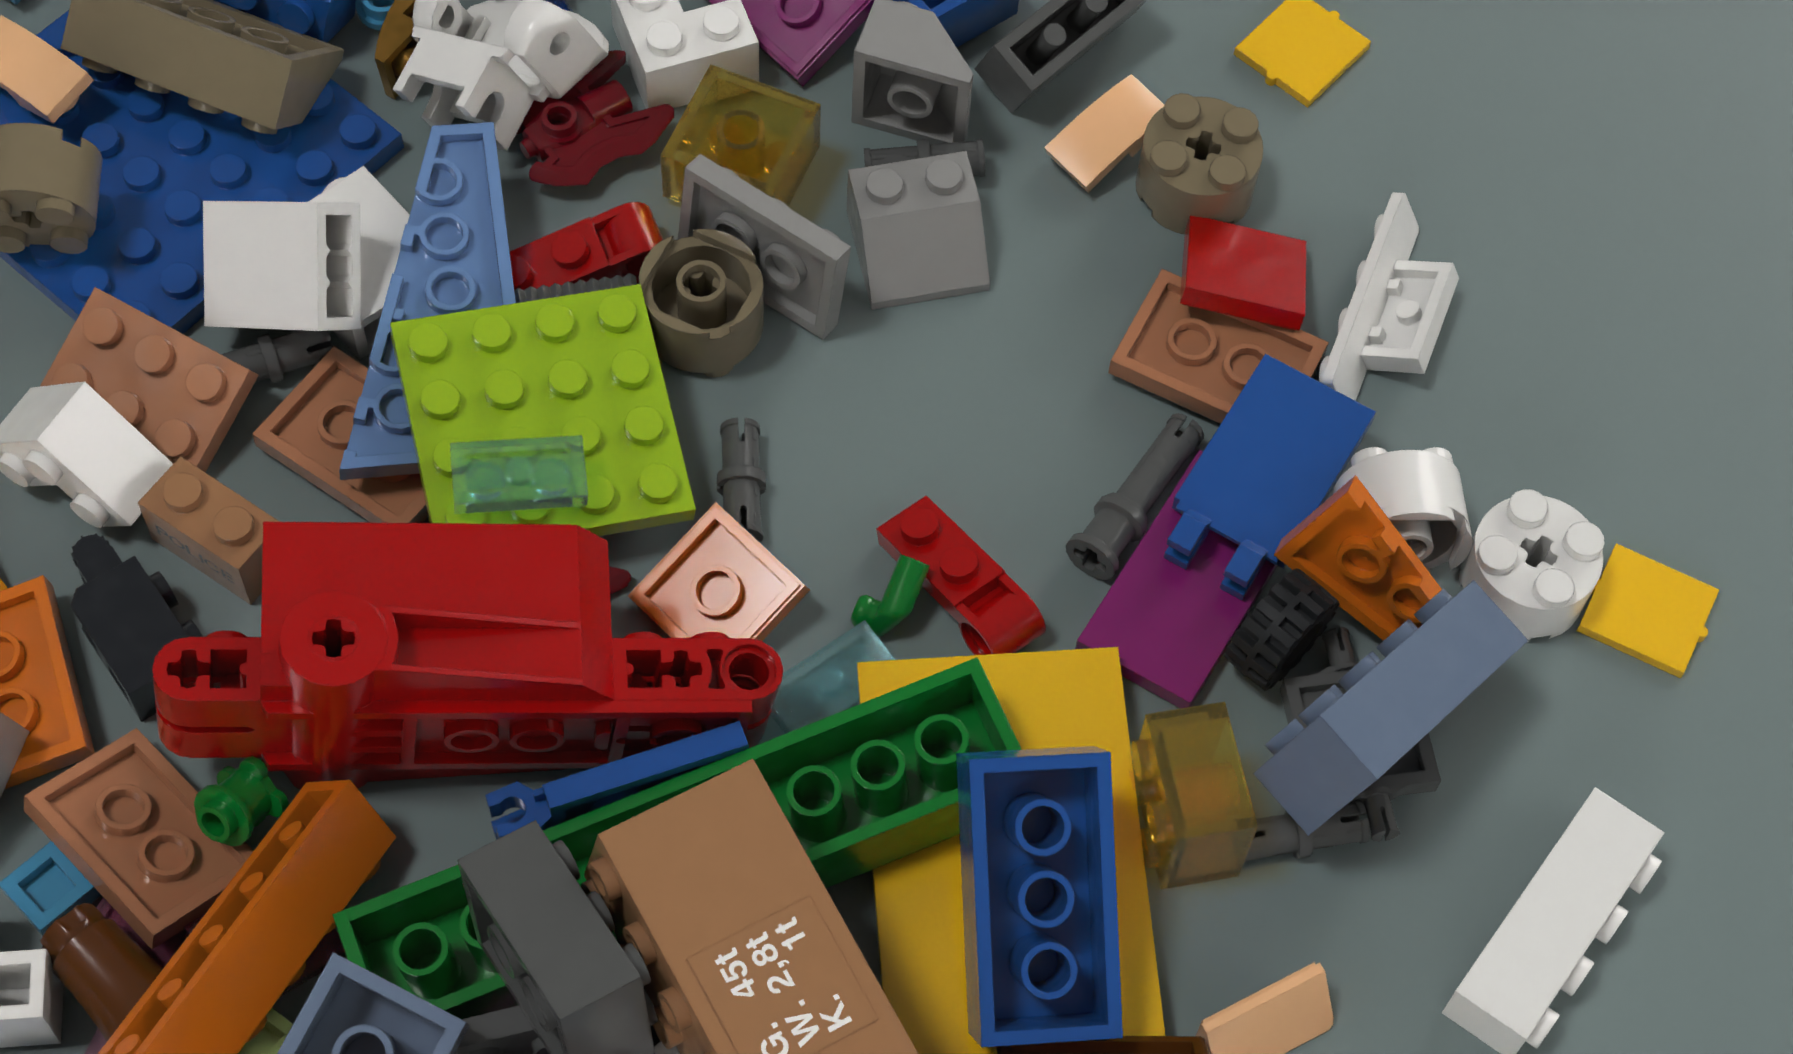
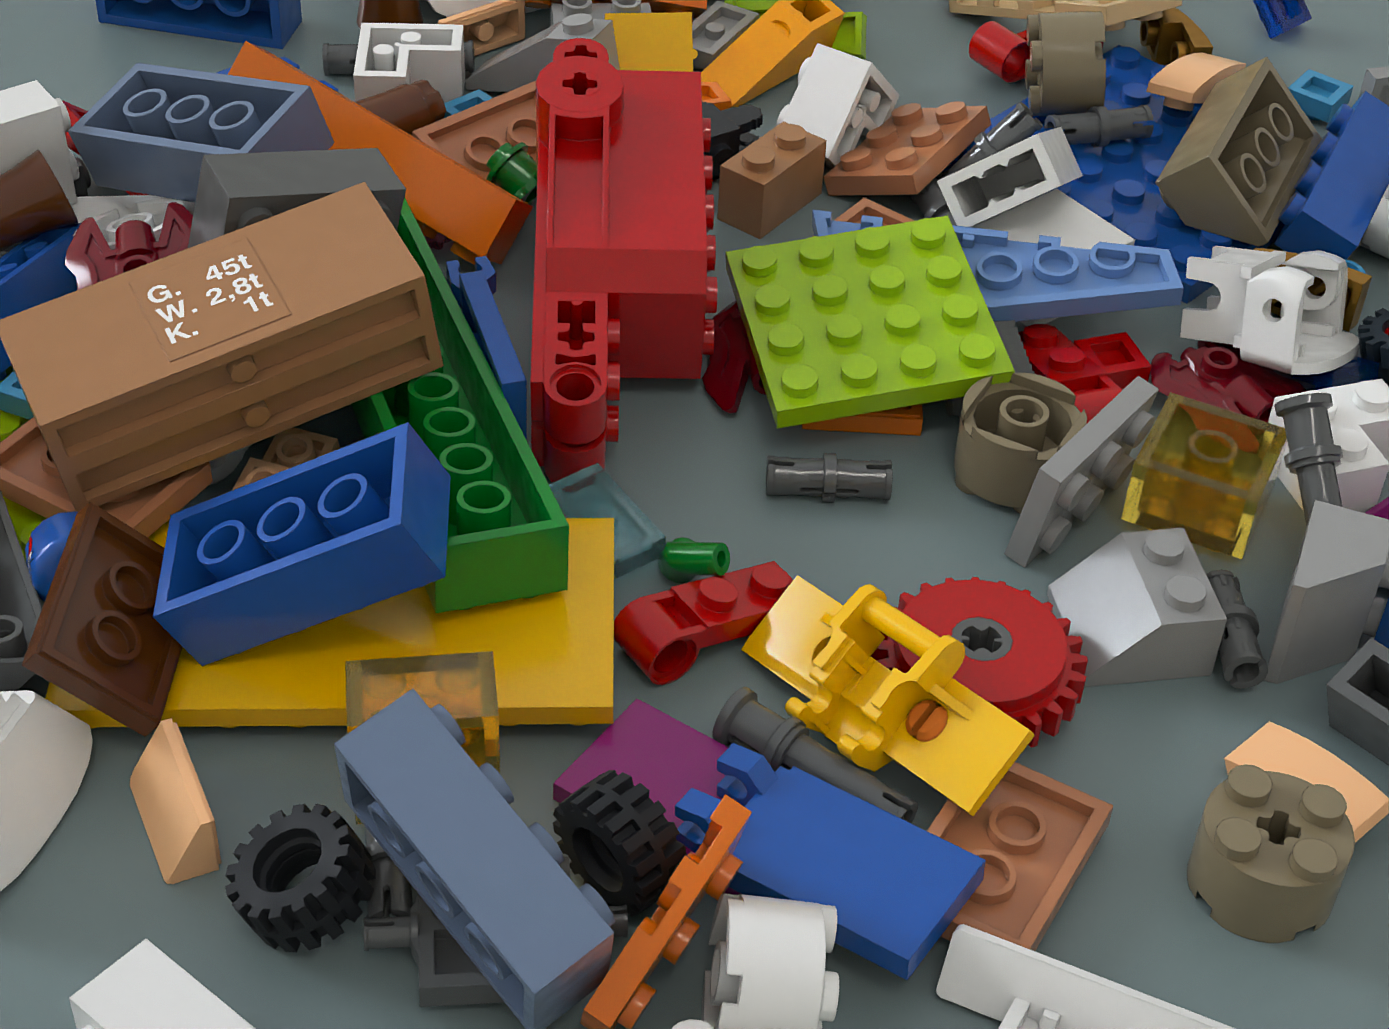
camera: 95 degrees right, 20 degrees down
(124, 180) = (1103, 125): none -> dark grey pin
(176, 283) = (1010, 130): none -> dark grey pin
(518, 474) = (789, 270): clear light blue plate -> none
(537, 212) = (1117, 357): none -> red plate
(718, 583) = (703, 448): tile -> none
(758, 52) = (1311, 448): none -> dark grey pin
(1000, 361) = (1013, 649): none -> red gear
(1082, 443) = (881, 714): none -> yellow piece
(1244, 272) = (1118, 882): red tile -> none
(1390, 884) = (318, 902): none -> black tyre

